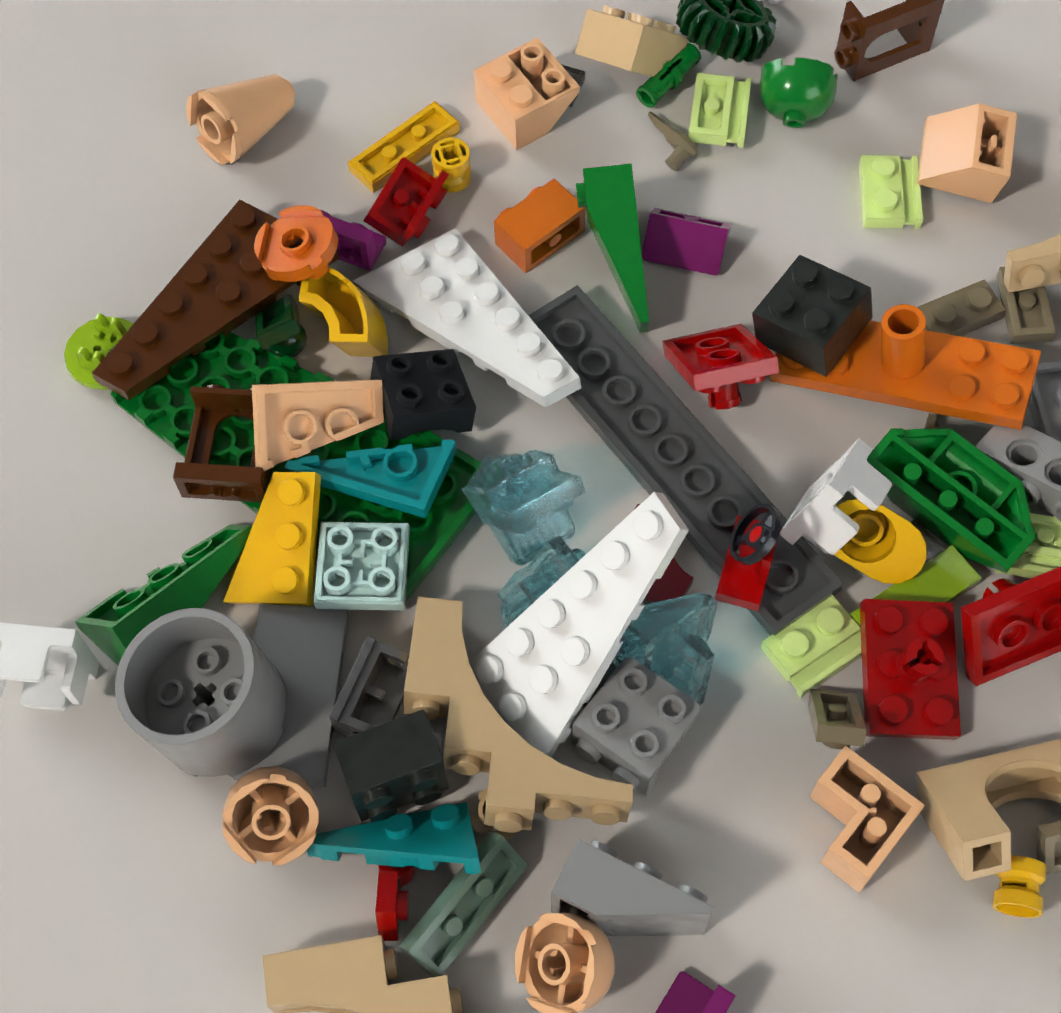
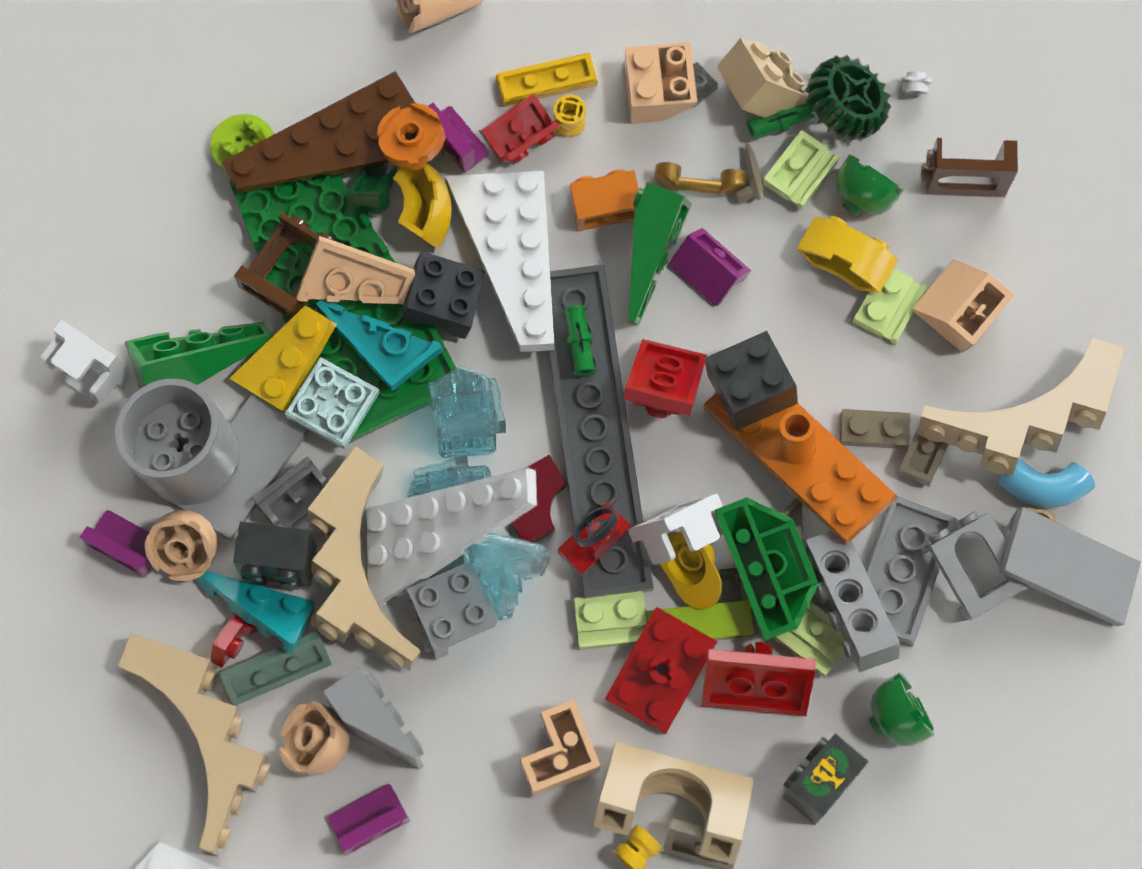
camera: 25 degrees right, 10 degrees up
(188, 856) = (119, 541): none -> magenta panel
(602, 366) = (582, 360): none -> green pin
(655, 151) = (669, 176): none -> pearl gold bar
(820, 160) = (847, 253): none -> yellow brick
(836, 718) = (585, 677): dark tan plate -> none

